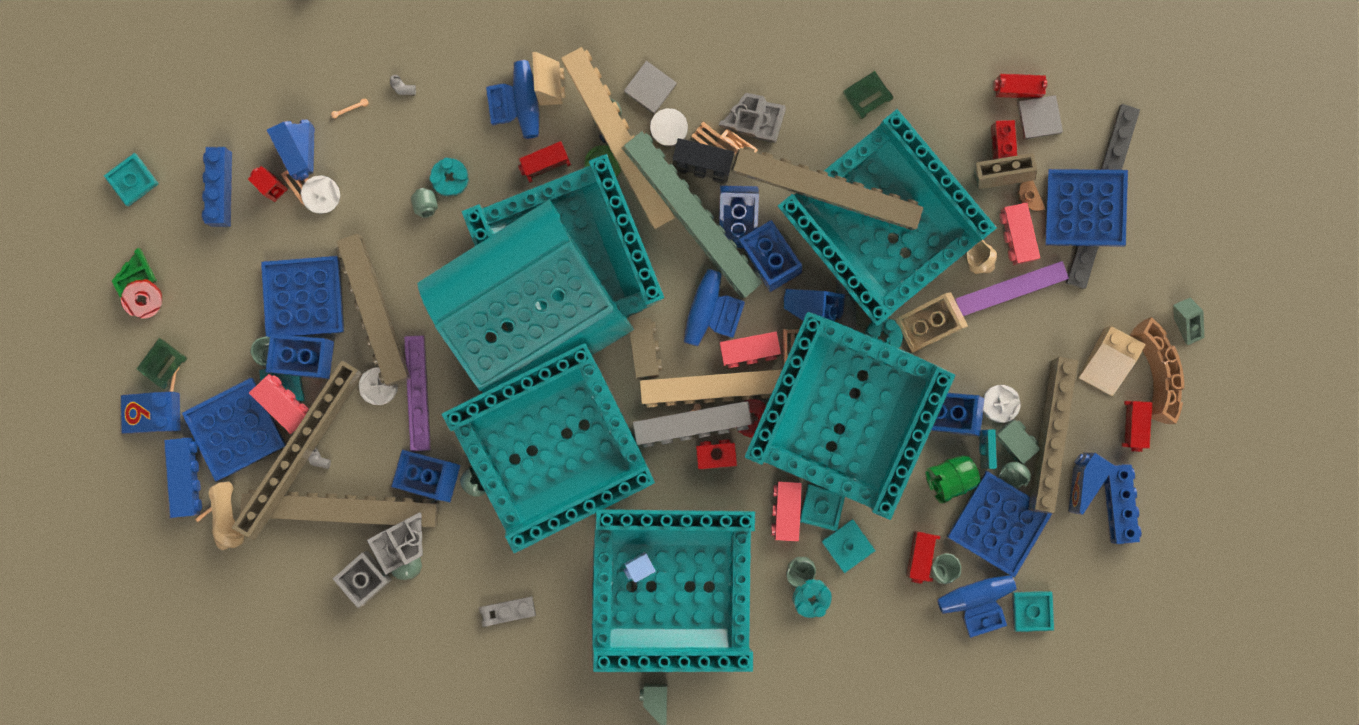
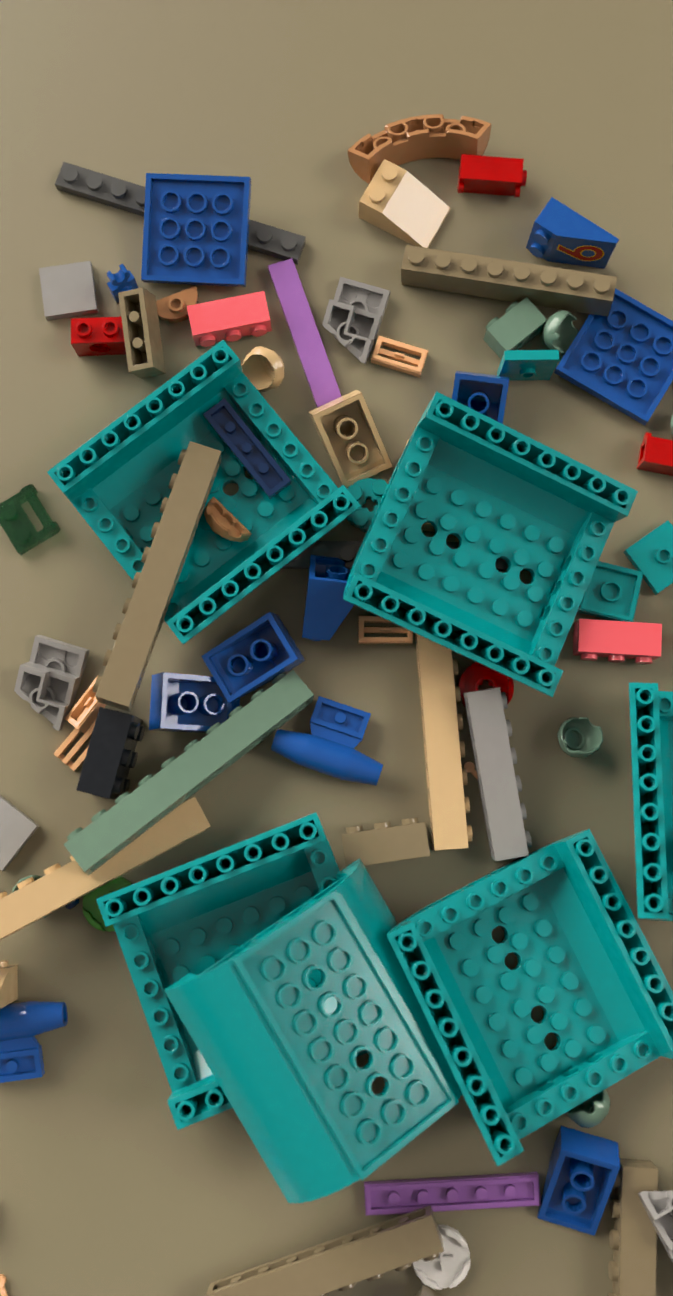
camera: 85 degrees left, 5 degrees down
(424, 203) = (160, 1184): sand green head -> none
(449, 166) = (139, 1142): teal plate -> none
(543, 160) = (102, 995): red brick -> none
(668, 126) = (59, 805): white tile -> none
(706, 461) = (547, 725): red brick -> none
(718, 482) = (579, 737): none -> sand green hair
(750, 349) = (388, 689): coral brick -> none
(866, 233) = (224, 523): none -> medium nougat plate
(920, 248) = (247, 448): none -> dark blue plate
(953, 478) = (568, 412): green piece -> none
(988, 355) = (395, 365): none -> light nougat tile
(1001, 403) = (461, 349): white tile -> none
(1020, 86) = (23, 313): red brick -> none
(1025, 326) = (356, 316): none -> light grey slope
(1043, 155) = (121, 281): none -> blue plate
(1122, 505) = (602, 197): blue brick -> none
(1189, 320) = (349, 107): sand green slope -> none

